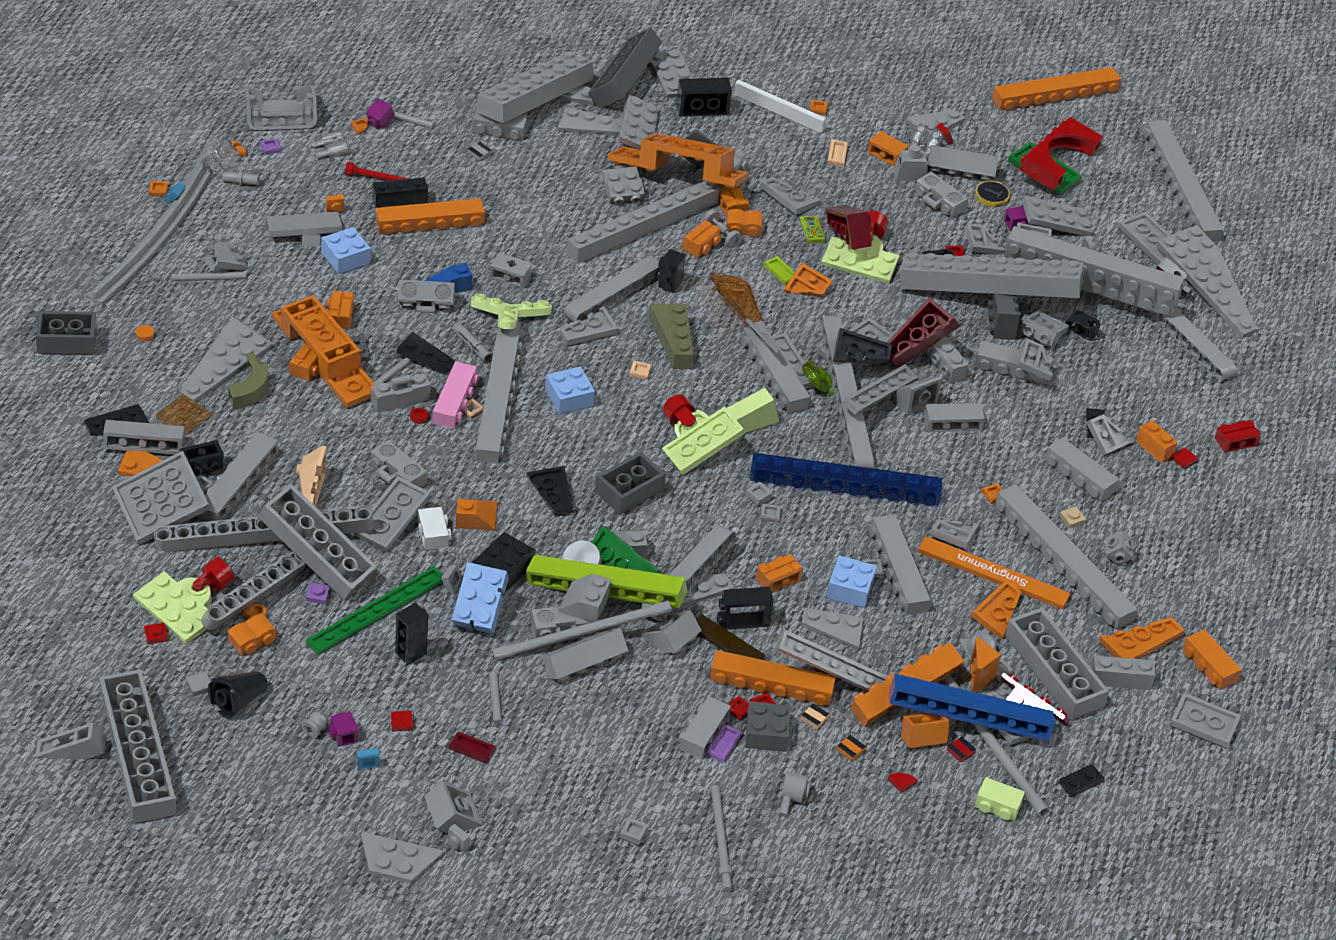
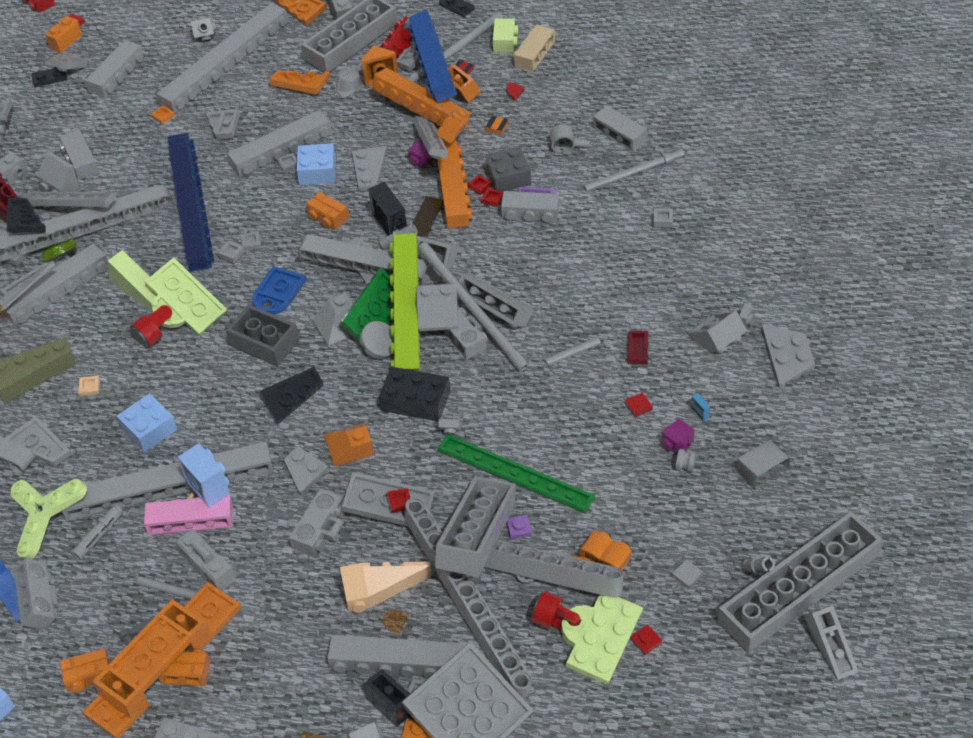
camera: 100 degrees left, 5 degrees up
(168, 719) = (758, 565): none -> light grey pin
(235, 691) = (687, 529): black cone -> none
(253, 388) = (242, 701): olive arch -> none
(273, 489) = (395, 620): none -> clear orange tile
(275, 775) = (761, 460): none -> light grey piece
(384, 515) = (397, 499): none -> red tile
(411, 633) = (551, 411): black brick -> none
(419, 415) = (227, 539): red tile -> none
(425, 353) = (130, 567): black wing -> none
(433, 528) = (391, 462): white brick -> none
(464, 477) = (304, 469): none -> light grey wing
(470, 391) = (204, 474): none -> light blue brick
(480, 598) = (474, 384): light blue piece -> none
(691, 515) = (278, 289): none -> blue tile
(710, 610) = (385, 242): none -> light grey pin
(789, 844) = (620, 128): none -> light grey brick
(814, 716) = (475, 152): tile -> none
(839, 684) = (453, 125): none -> orange brick
(964, 818) = (534, 48): none -> tan brick
(993, 572) = (258, 95): orange tile -> none
(1072, 517) = (172, 66): tan plate -> none

